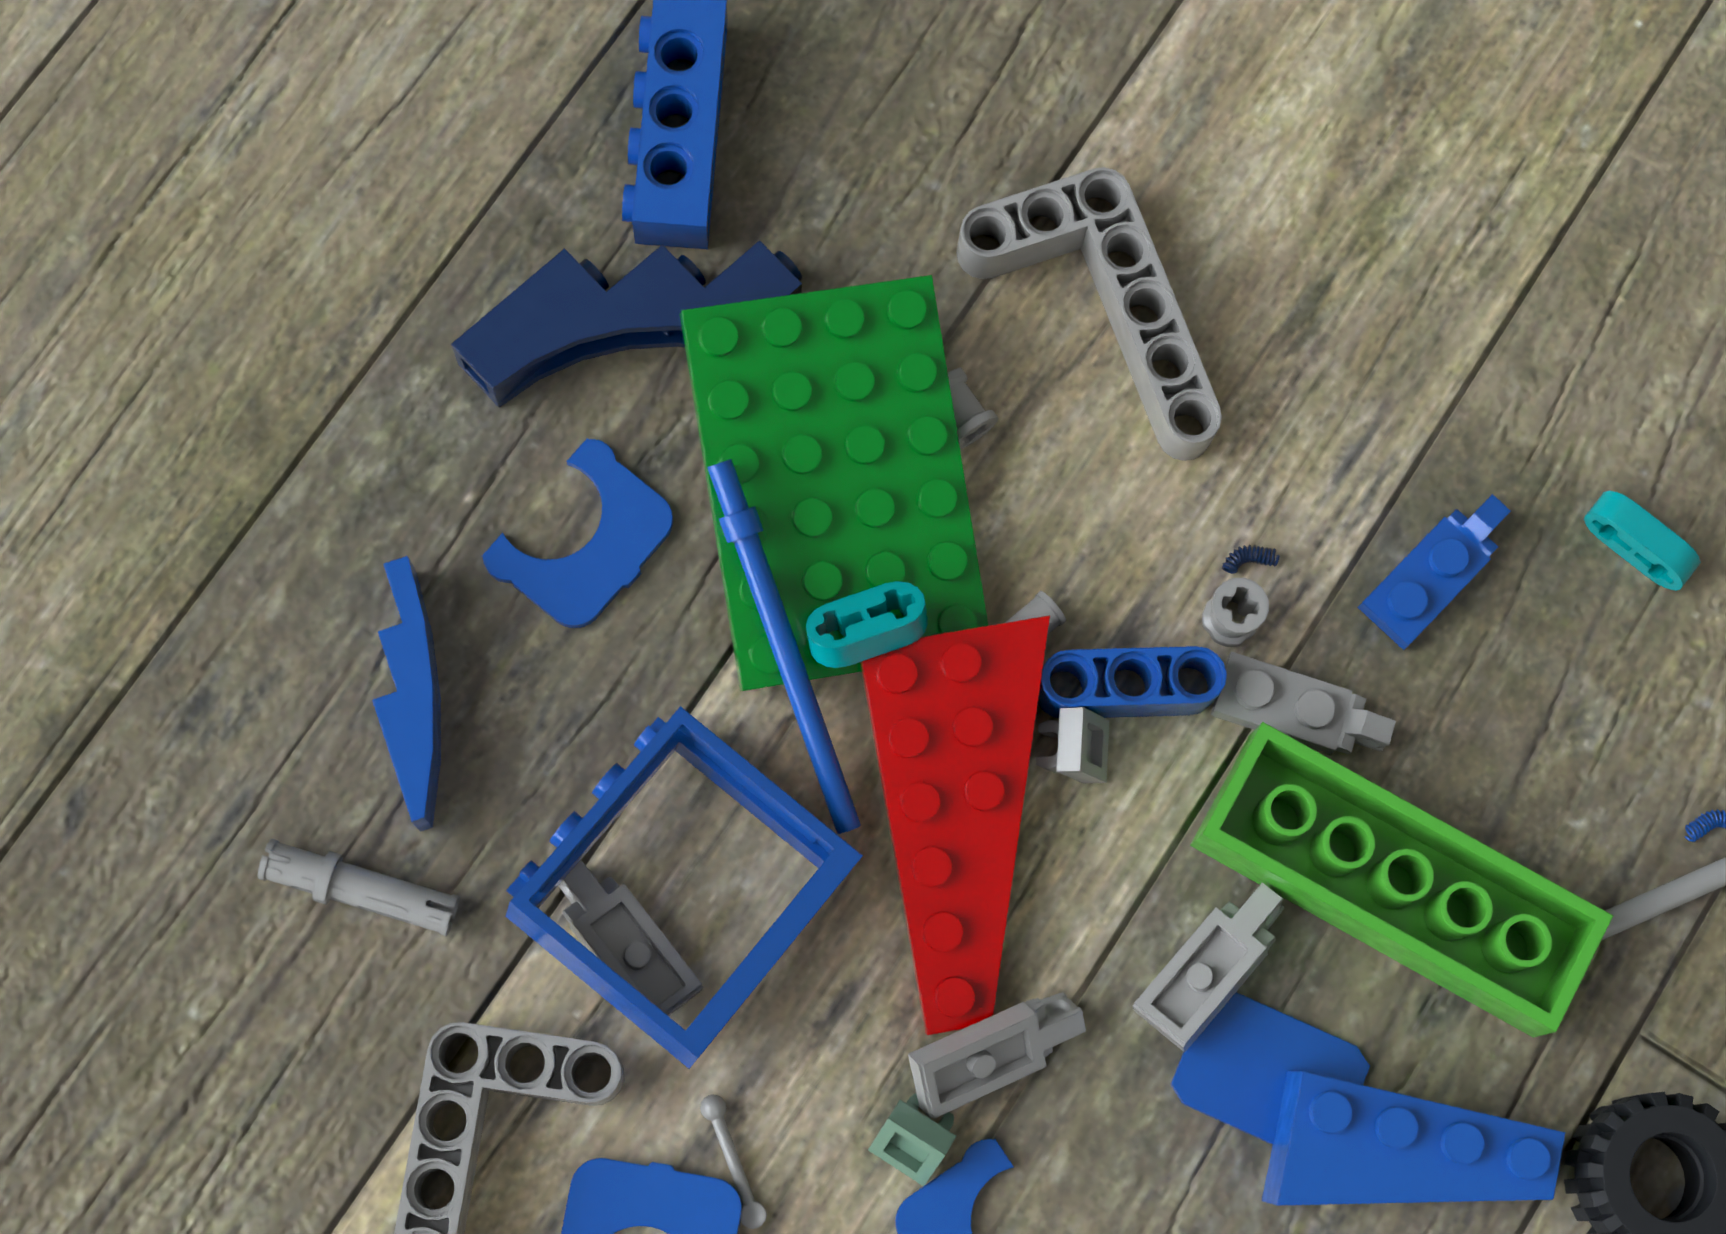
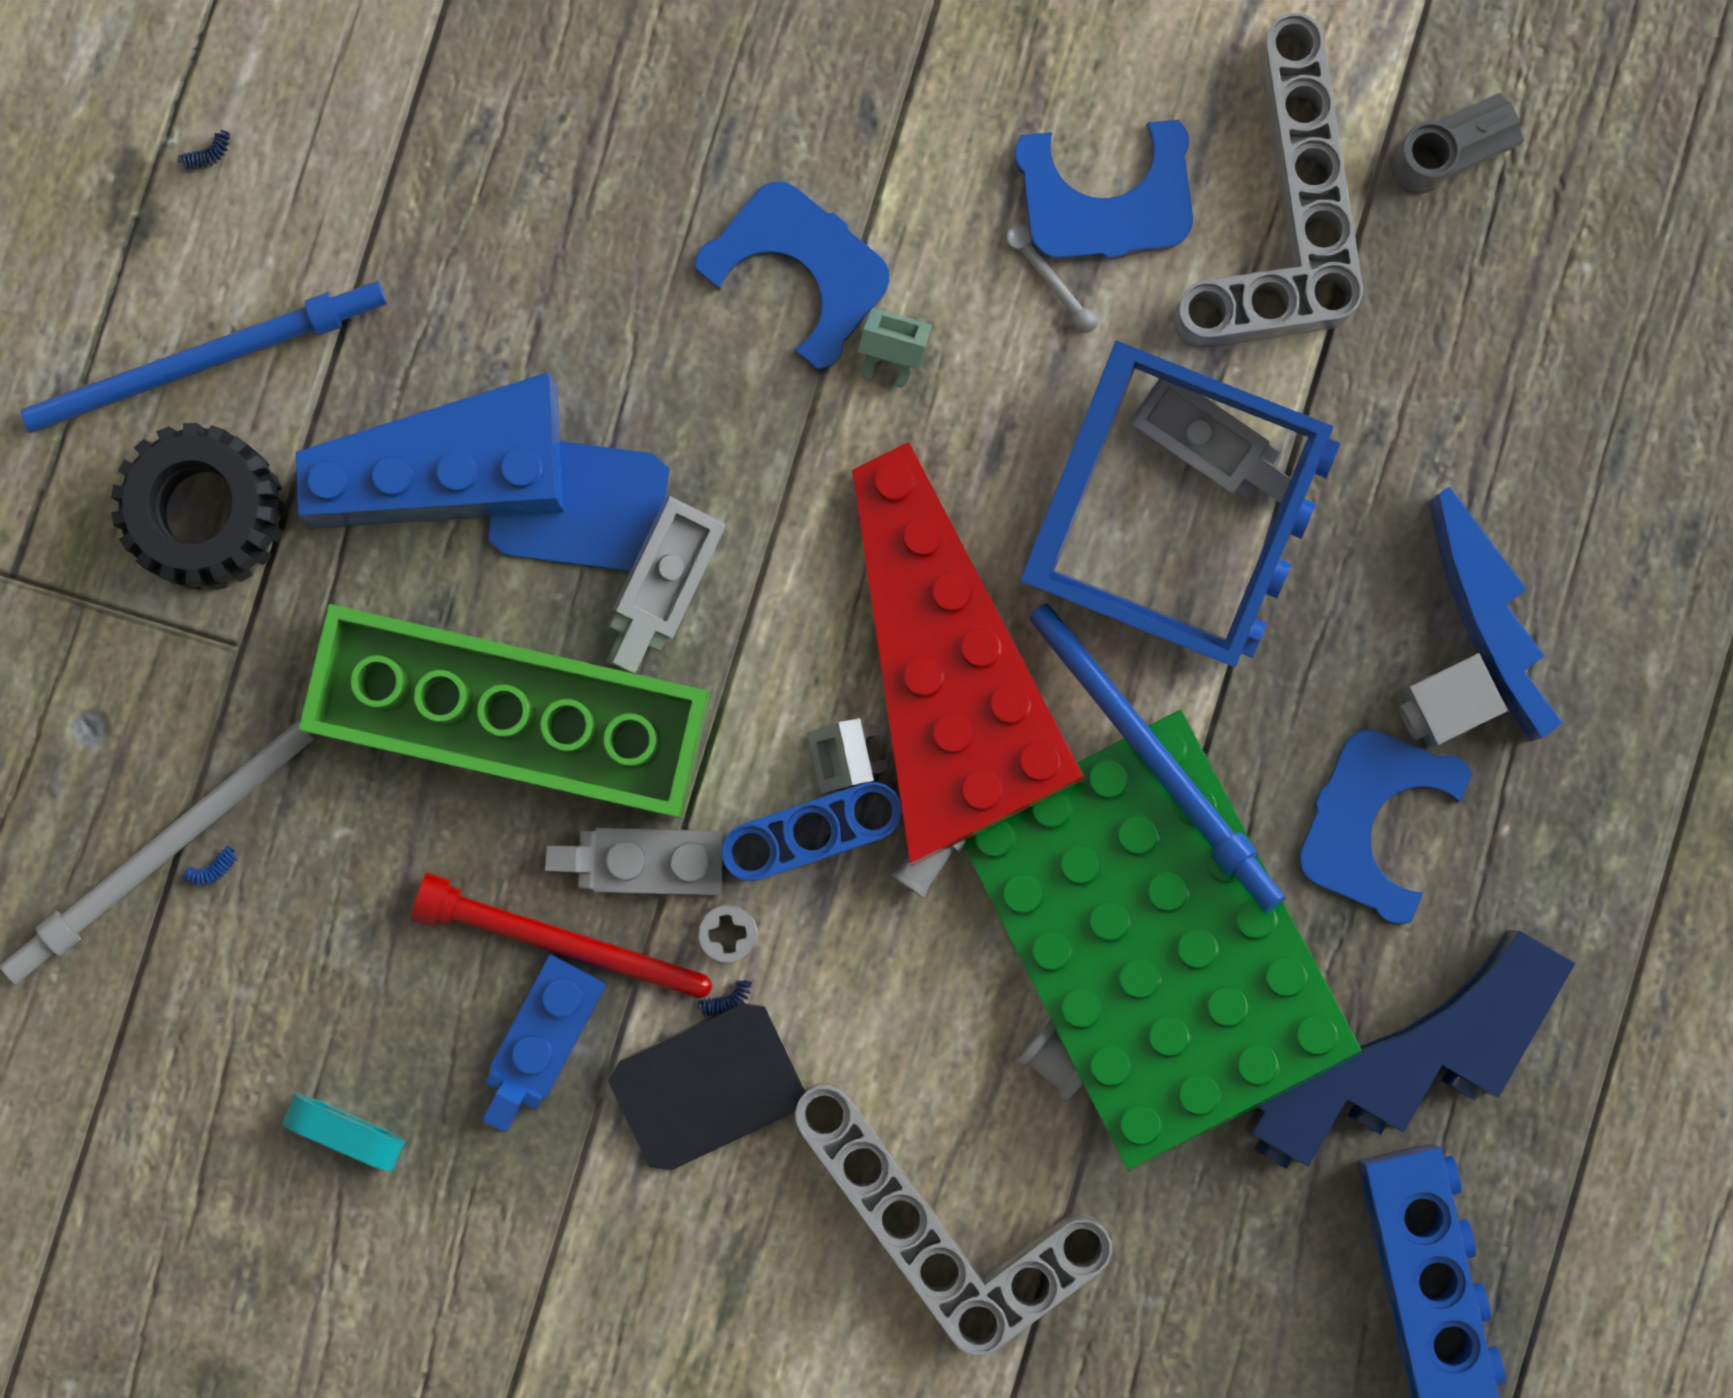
camera: 170 degrees right, 10 degrees up
(275, 1175) = (1458, 143): none -> dark grey piece
(333, 879) = (1478, 420): light grey pin -> none
(480, 622) = (1451, 702): none -> light grey brick
(867, 624) = (1083, 798): teal beam -> none
(992, 1053) = (843, 441): light grey hinge -> none
(1289, 485) = (706, 1086): none -> black piece
(1498, 722) = (442, 903): none -> red piece

